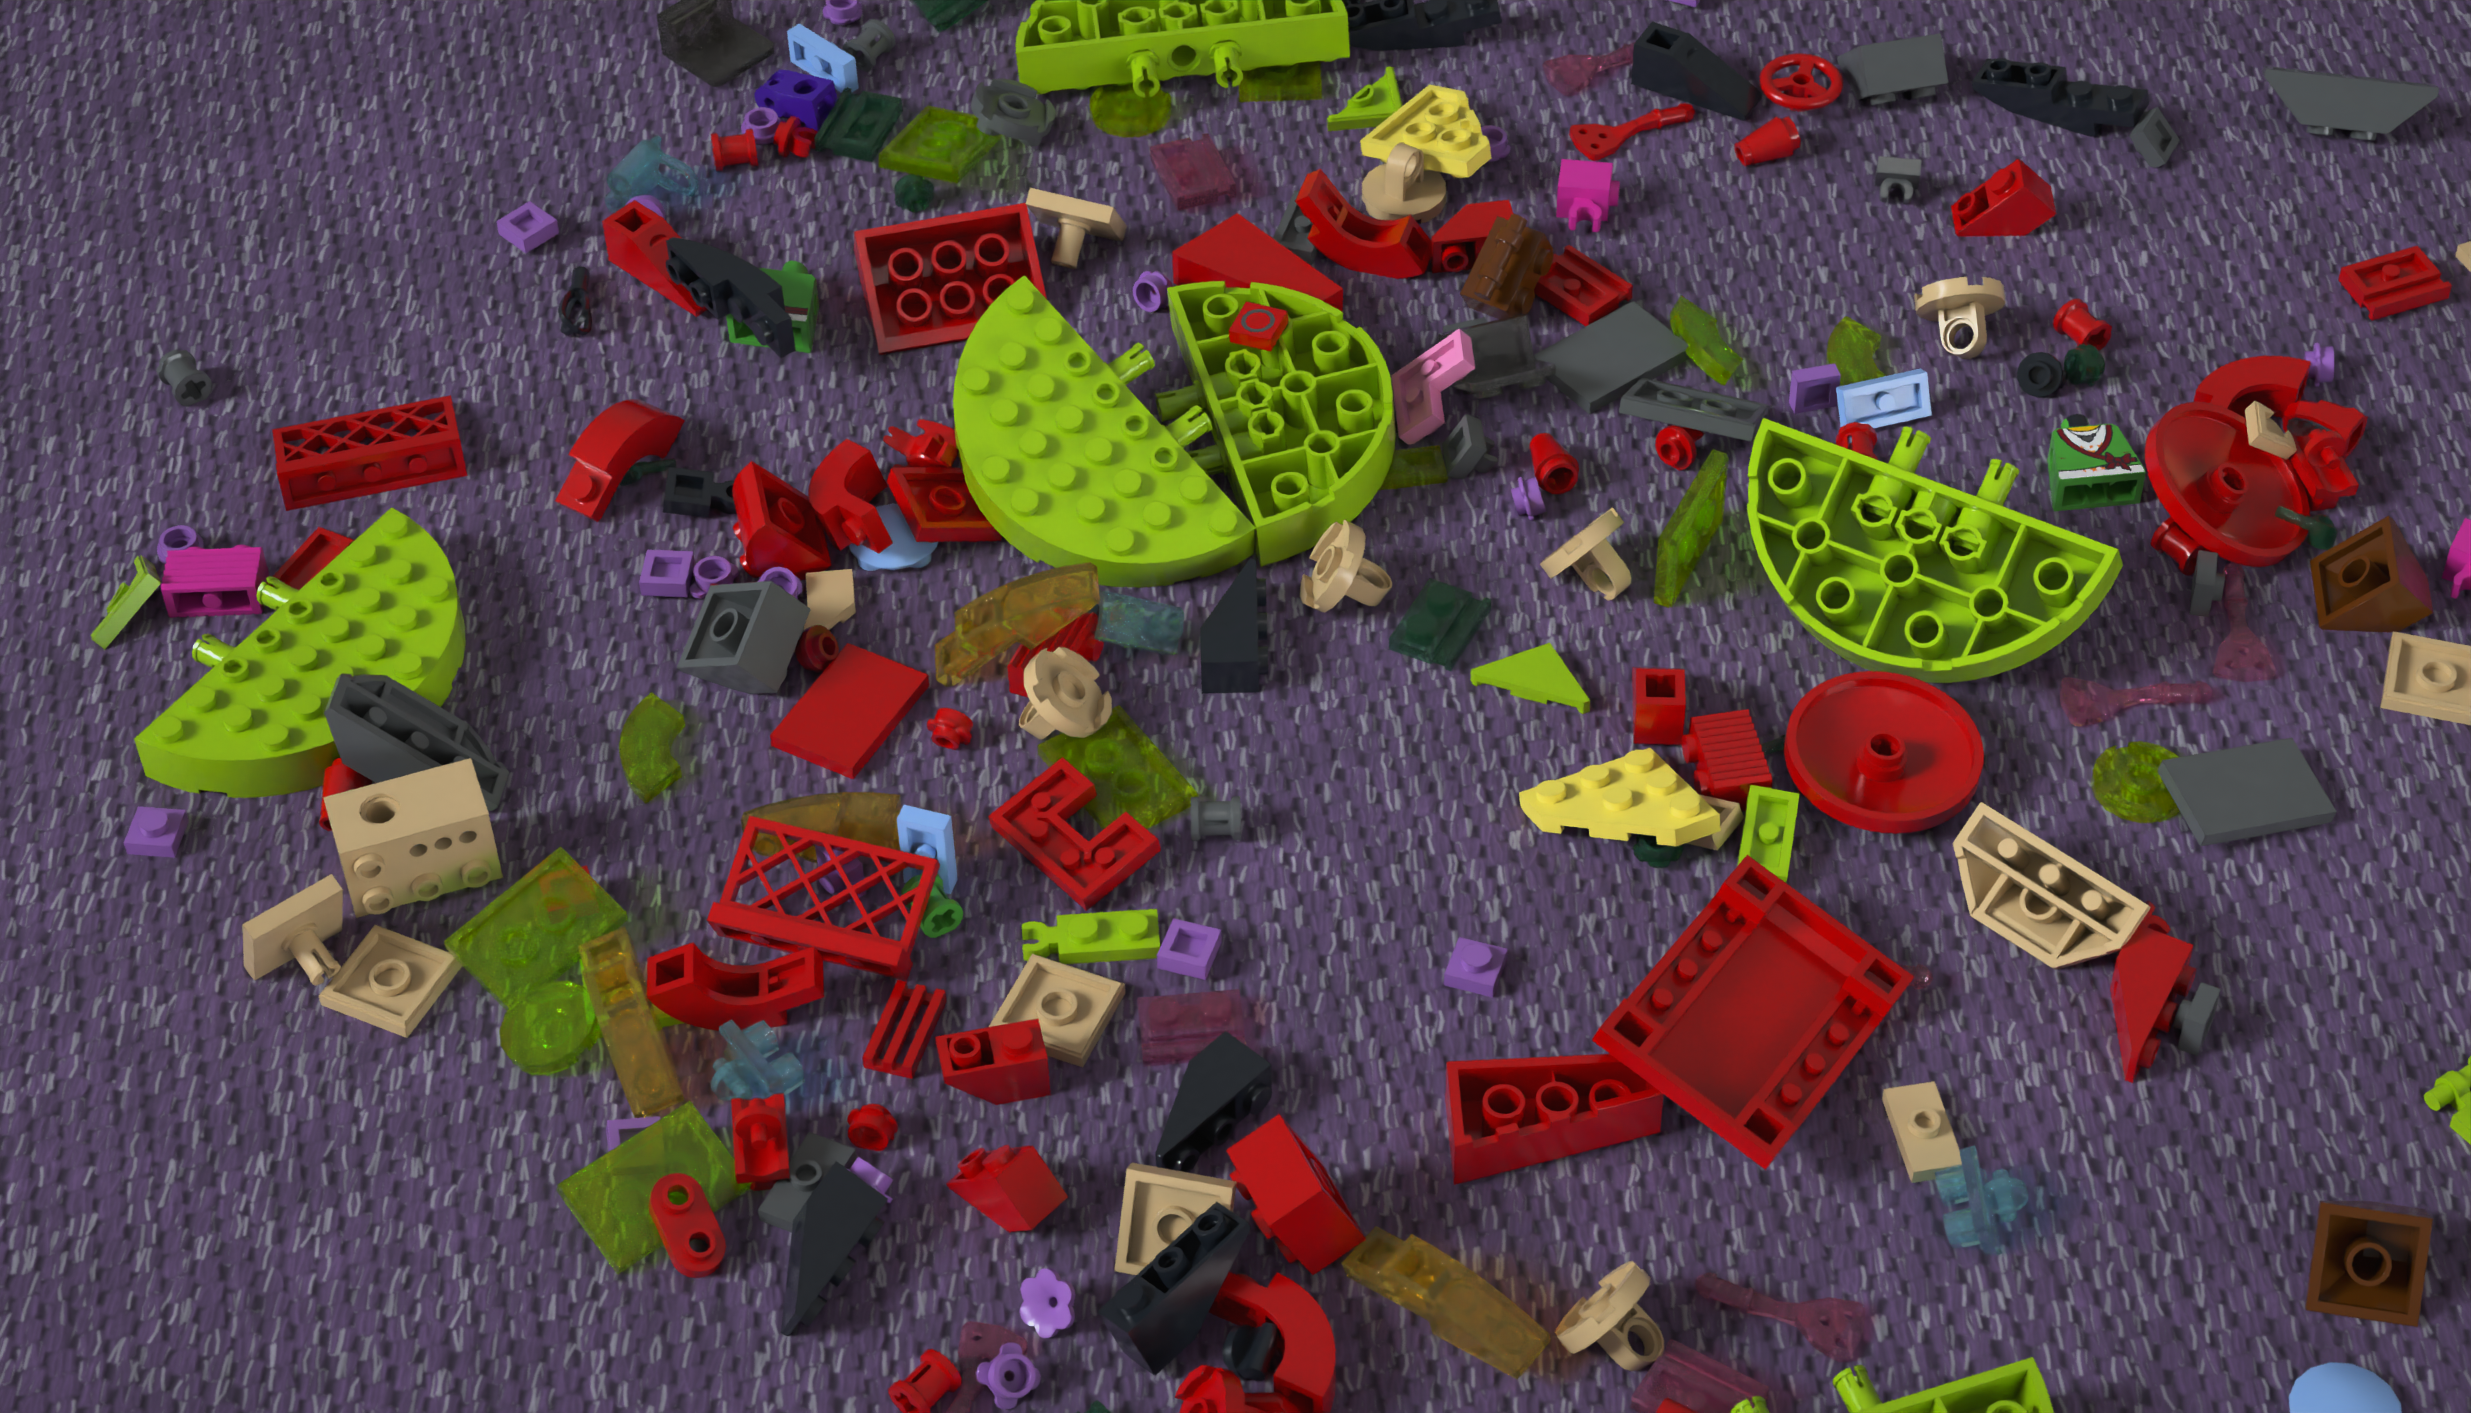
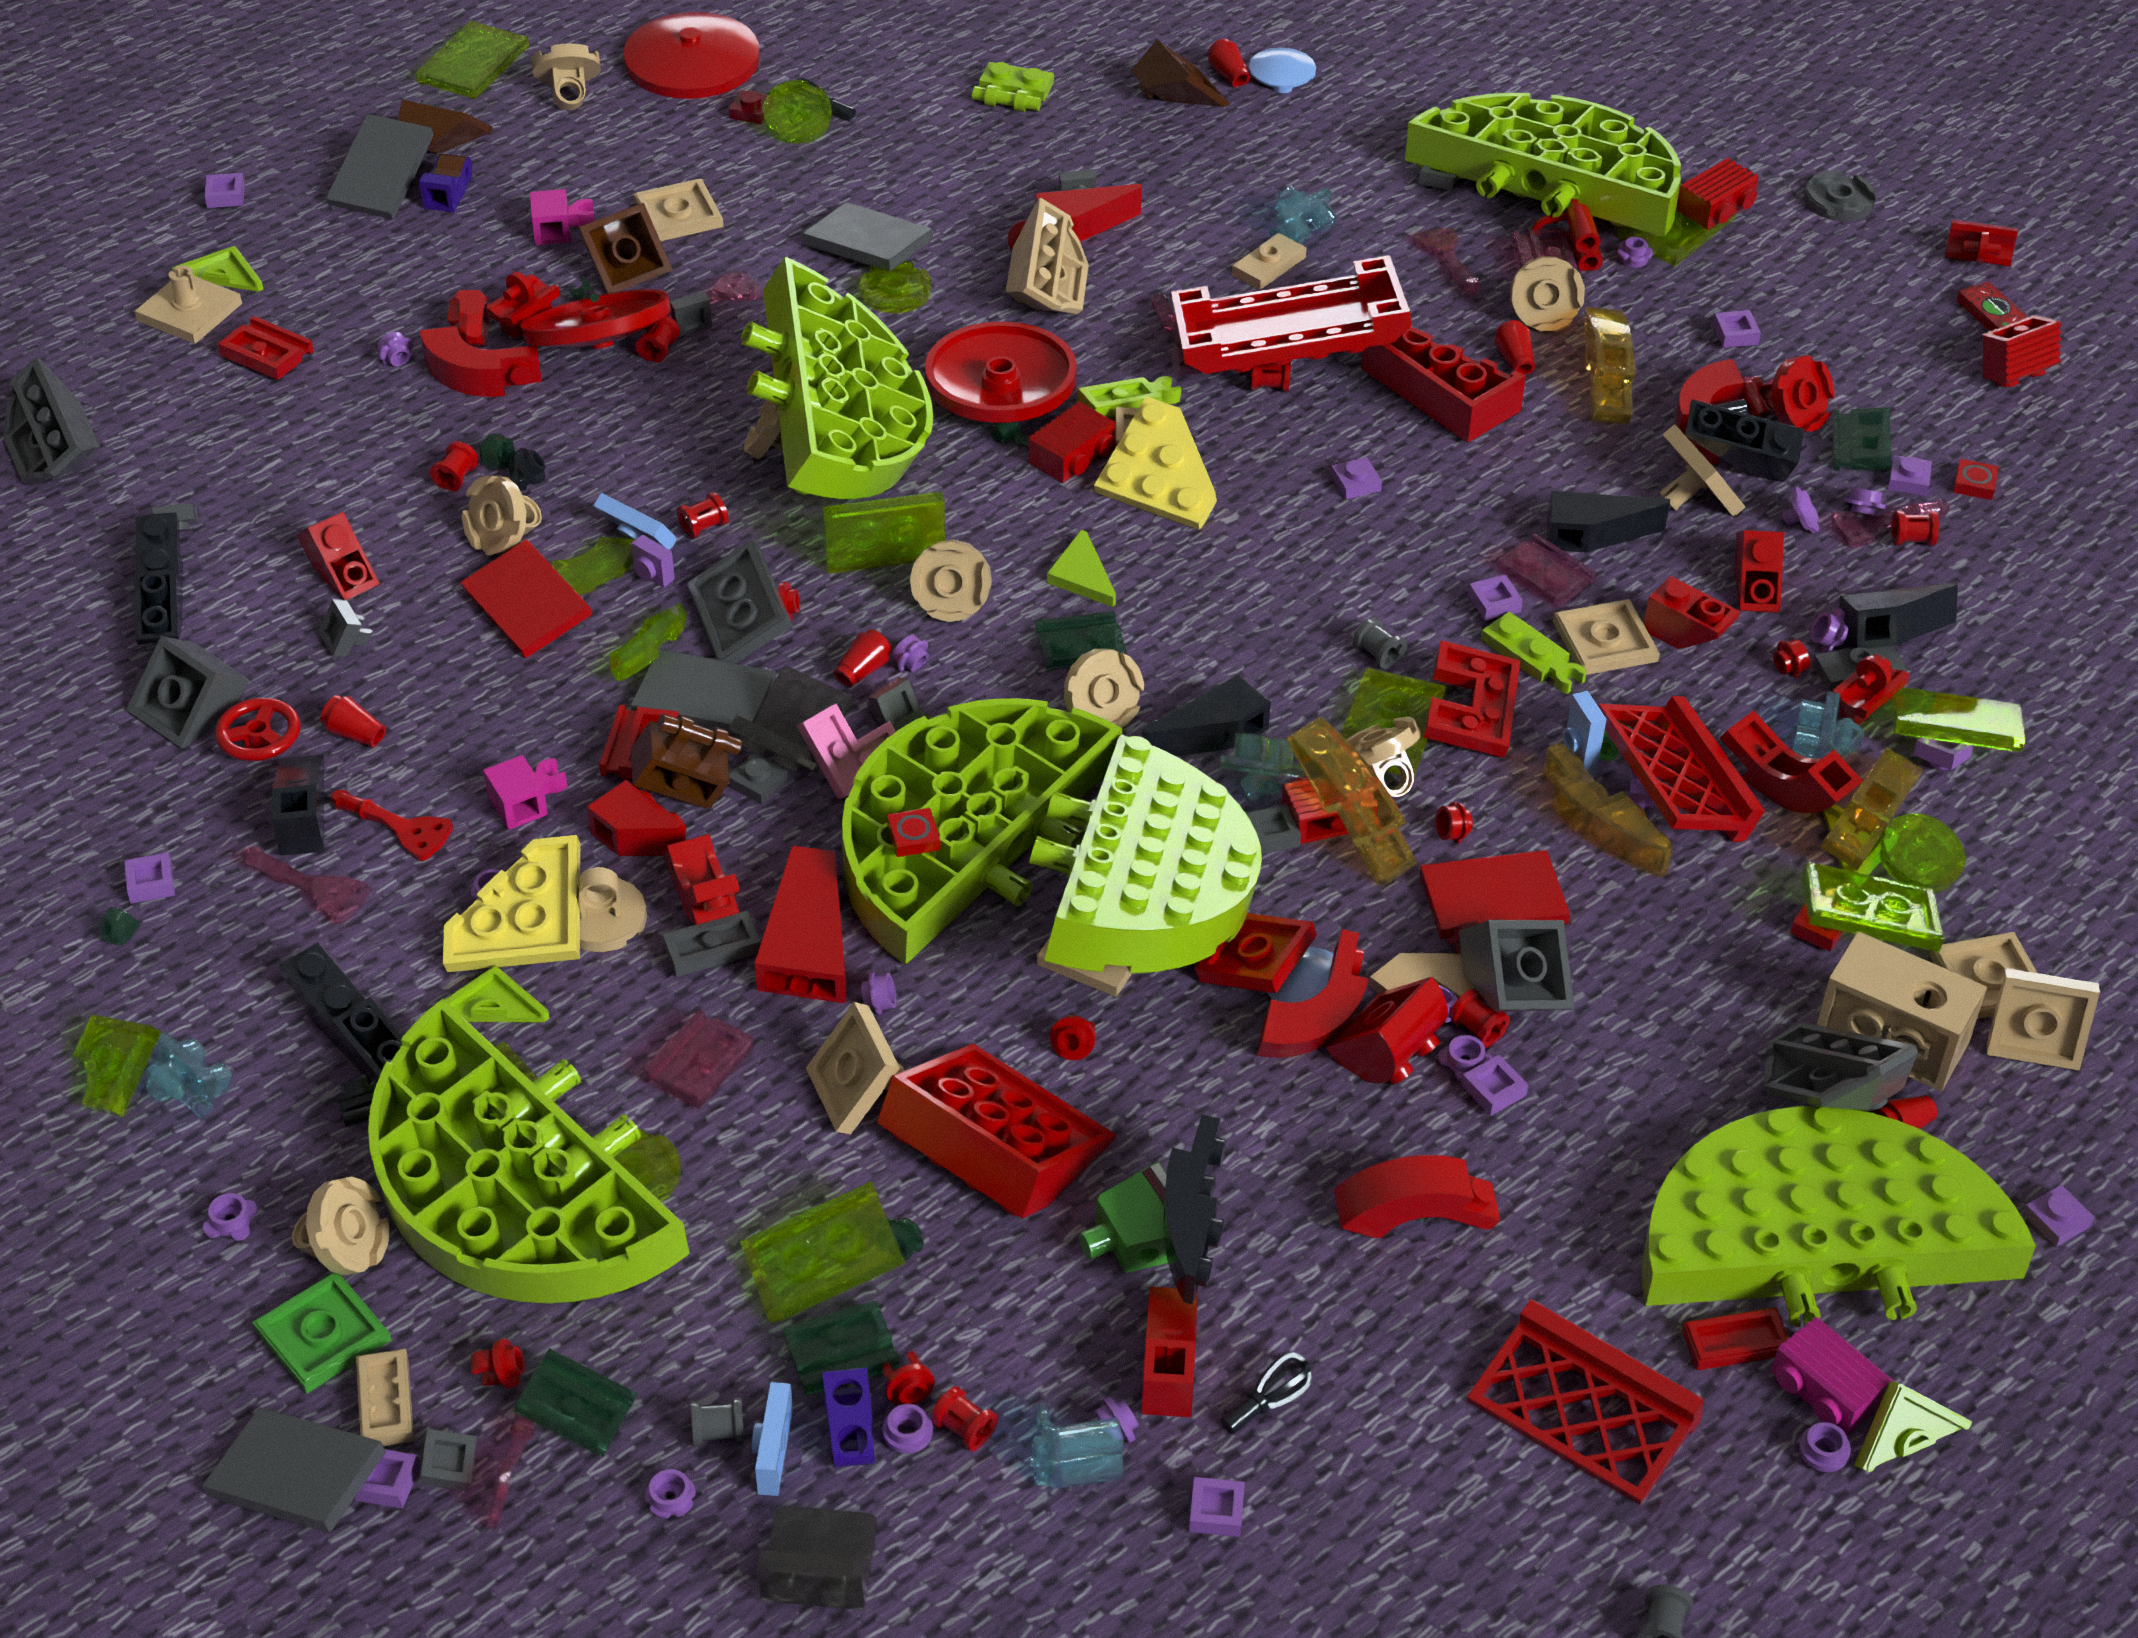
camera: 130 degrees left, 0 degrees up
(647, 746) = (1652, 984): clear neon green tile -> none
(685, 1223) = (1960, 685): red plate -> none
(694, 493) = (1397, 1130): black plate -> none
(916, 997) = (1704, 687): red tile -> none
(931, 449) = (1208, 1005): red piece -> none
(1012, 111) = (755, 1219): dark grey plate -> none
(1293, 1196) = (1632, 425): red brick -> none
(1555, 1244) = (1515, 345): none -> red cone
(1658, 705) = (1053, 488): red slope -> none
(1840, 297) = (526, 598): none -> red tile
(2092, 466) = (615, 403): bright green torso -> none
(2265, 432) = (525, 315): tan tile -> none
(2387, 1346) = (1228, 62): none -> red cone

